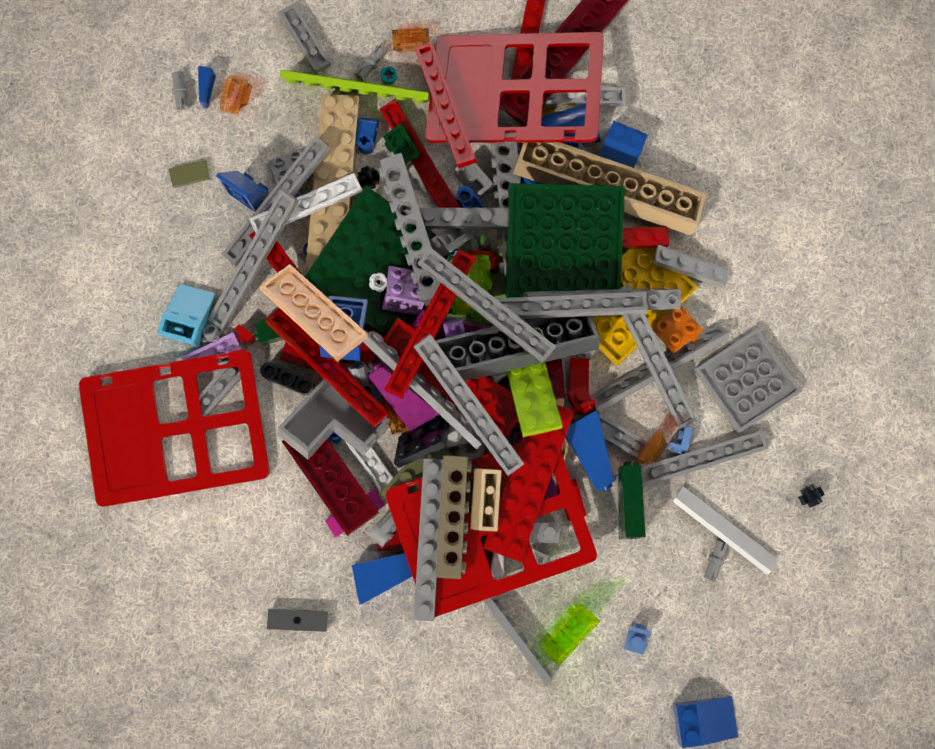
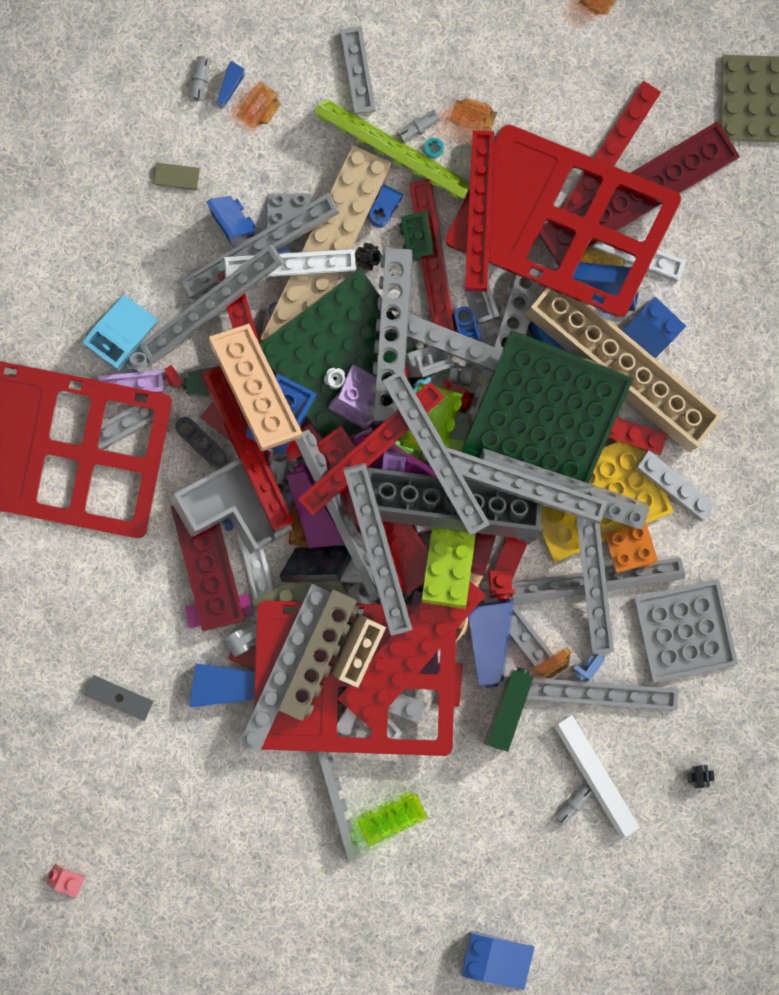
camera: 15 degrees right, 5 degrees up
(637, 638) = (460, 851): medium blue bracket -> none

